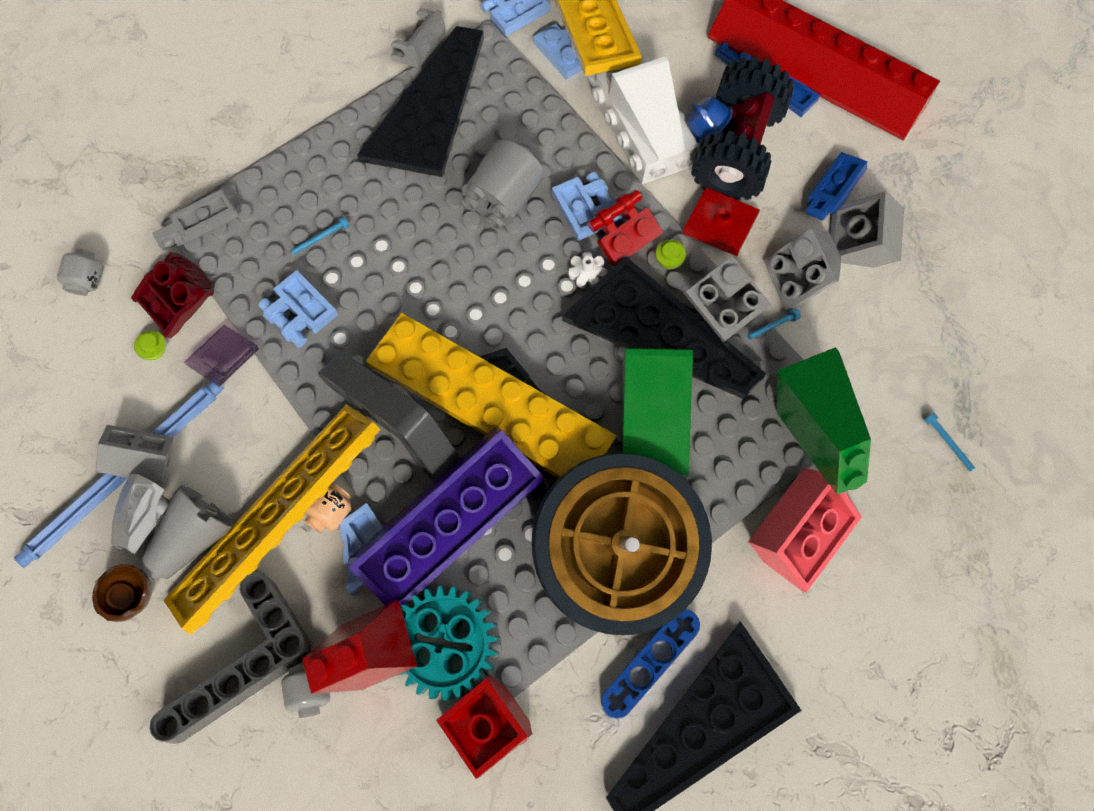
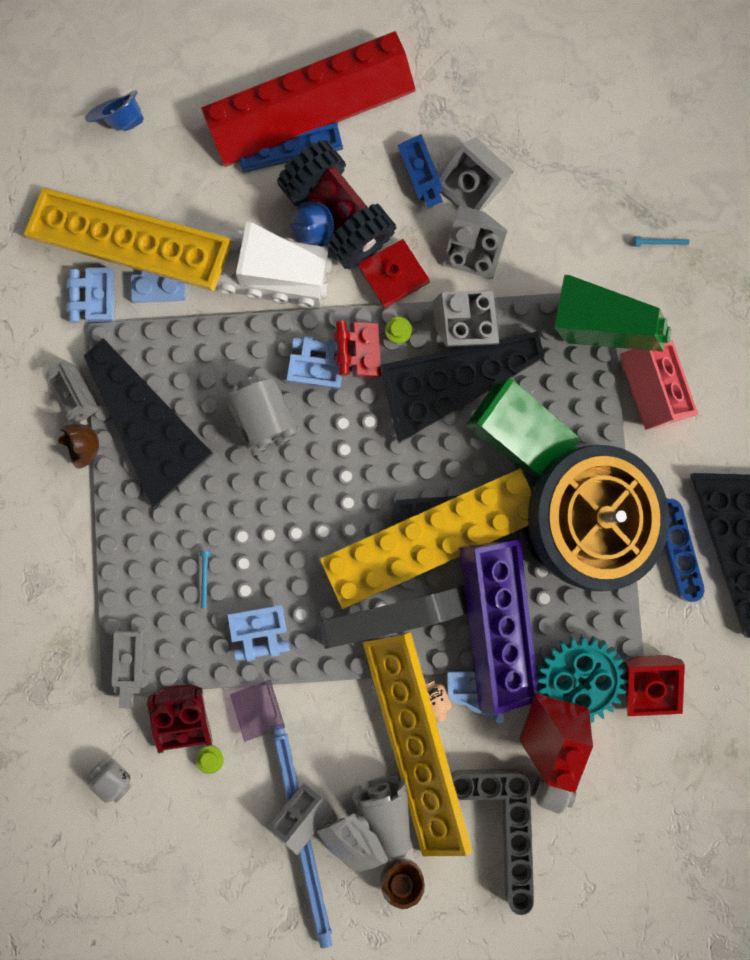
camera: 55 degrees left, 15 degrees up
(379, 70) = (81, 443): none -> reddish brown hair
(587, 269) = (369, 403): white plant -> none
(792, 315) = (500, 276): dark azure piece -> none

